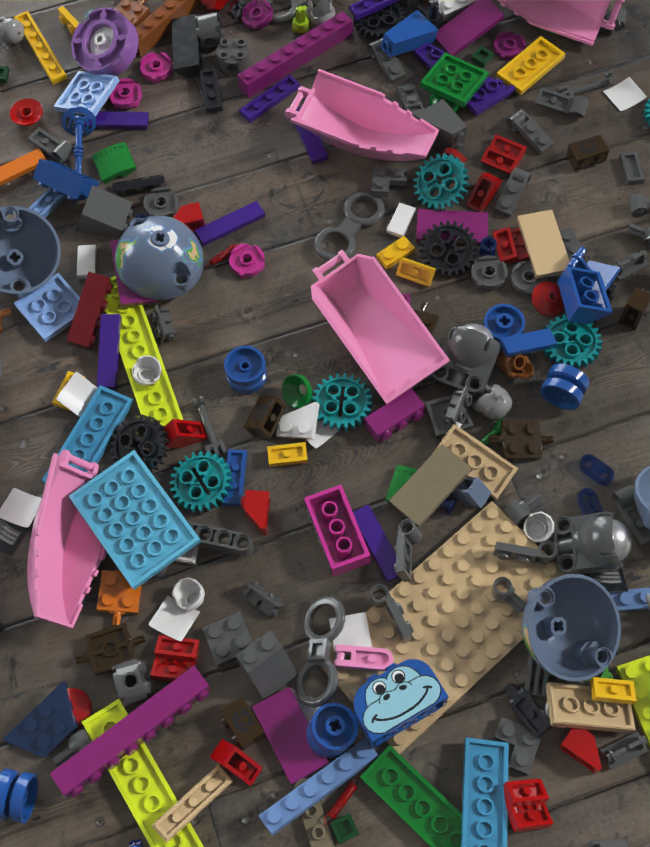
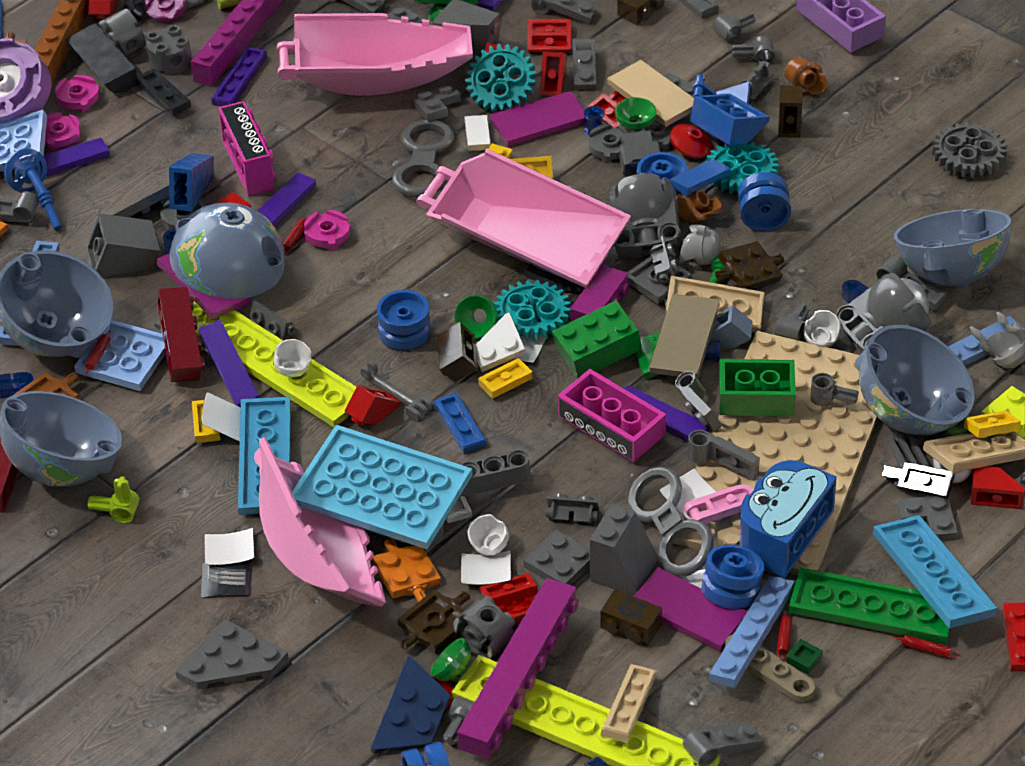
camera: 30 degrees left, 20 degrees down
(32, 299) = (97, 352): none -> red piece
(63, 180) = (52, 227): blue slope -> none
(86, 260) = (132, 300): white tile -> none
(96, 696) = (452, 661): none -> green piece
(114, 161) = (94, 196): green slope -> none
(153, 438) = (346, 412): black gear -> none
(174, 178) = (189, 180): none -> blue slope
(185, 491) = (430, 431): teal gear -> none
(230, 167) = (247, 148): none -> dark pink brick
(236, 762) = (648, 650): red slope -> none
(256, 508) = (507, 434): red slope -> none
(312, 144) = (317, 98): dark purple tile -> none
(367, 455) = (597, 339): none -> green brick
(451, 564) = (757, 387): none -> green brick
(462, 255) = (569, 134): black gear -> none
(501, 291) = (634, 148): none -> dark grey piece
(517, 253) = (635, 109): none -> green piece
(525, 554) = (826, 351): dark grey plate -> none
(527, 805) = (974, 552): red slope -> none
(596, 469) = (845, 264): clear blue beam -> none

